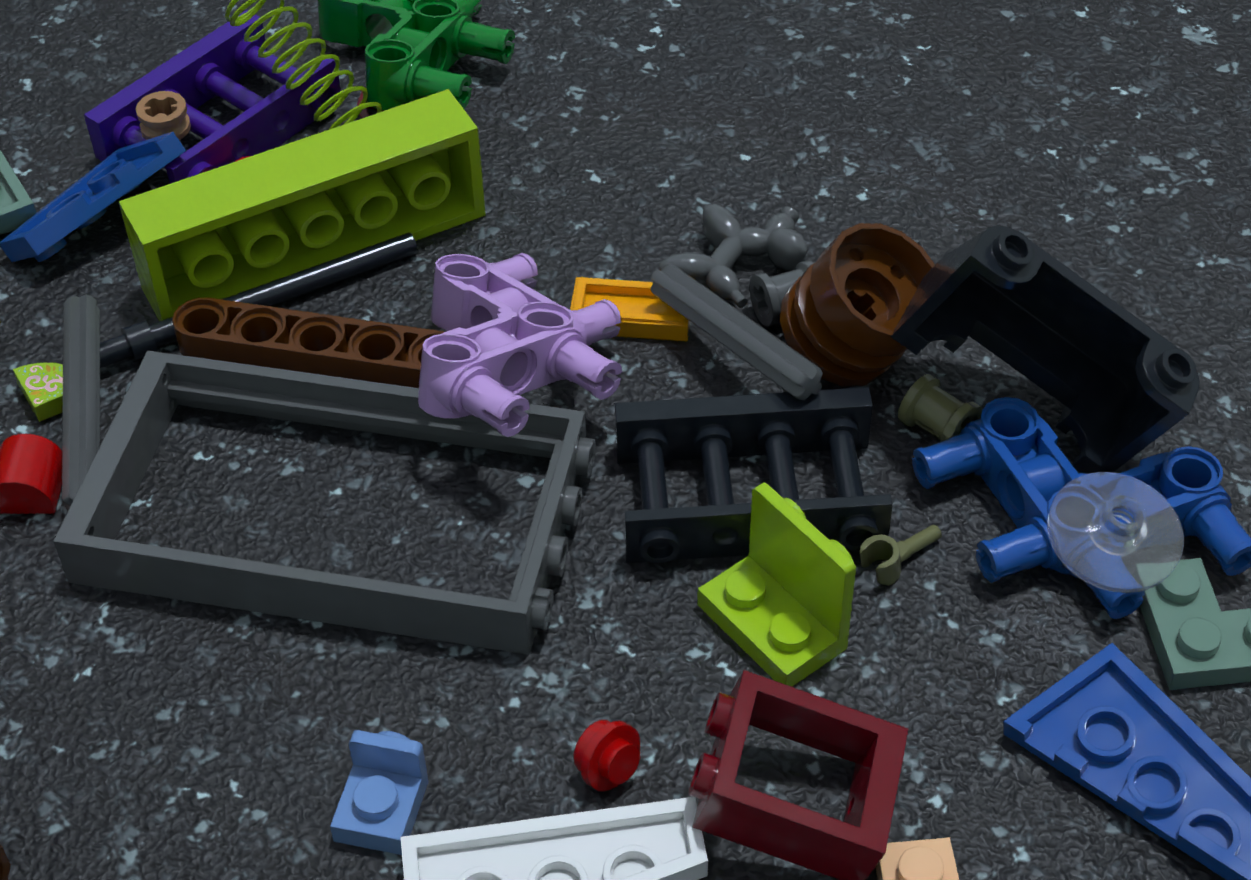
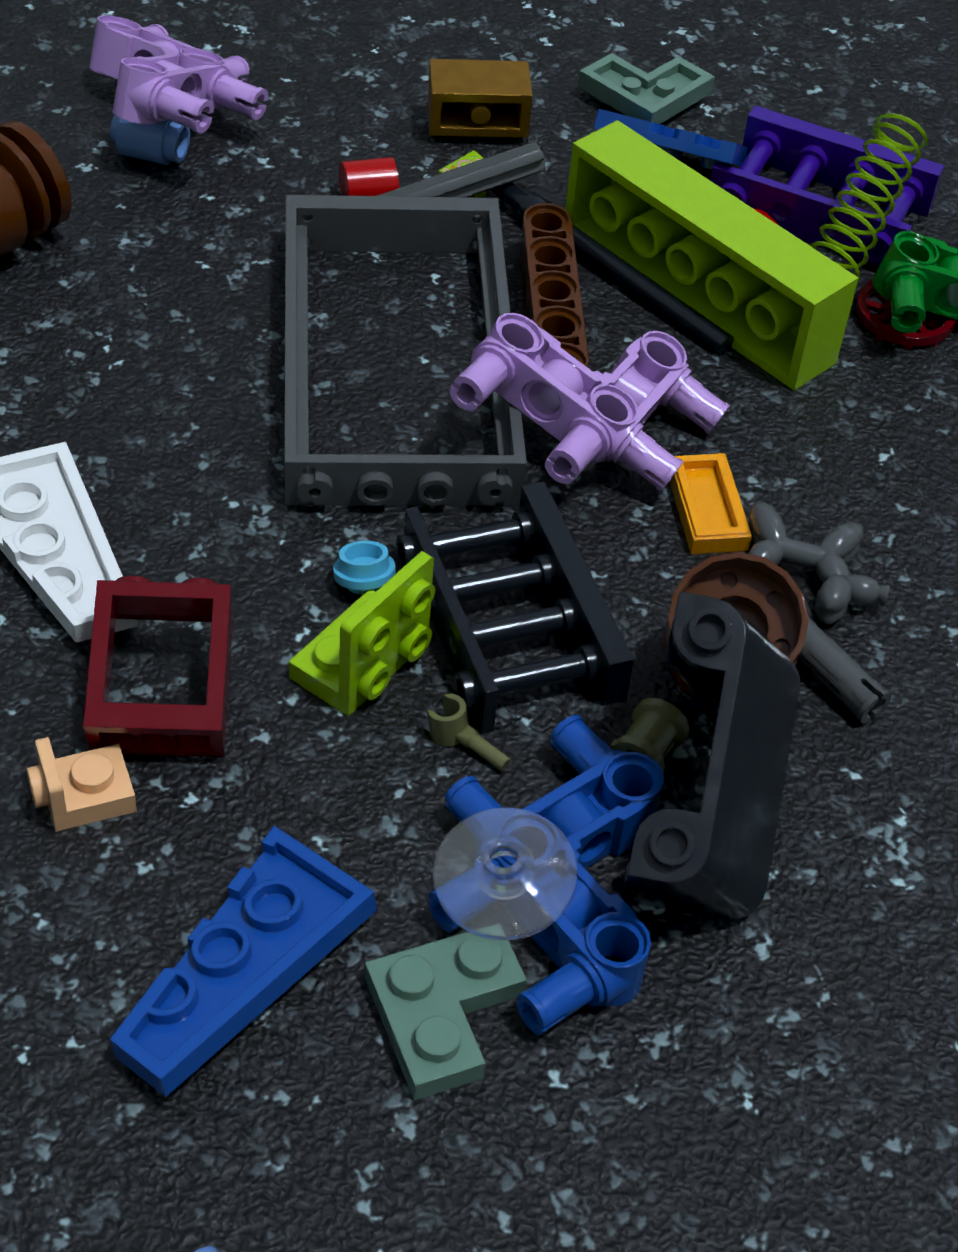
camera: 70 degrees right, 0 degrees up
(162, 114) = (776, 149): medium nougat bush -> none
(381, 791) = (115, 435): medium blue bracket -> none
(607, 754) = (174, 553): red plate -> none
(666, 588) = (363, 566): none -> medium azure plate
(737, 332) = (668, 553): dark grey axle -> none

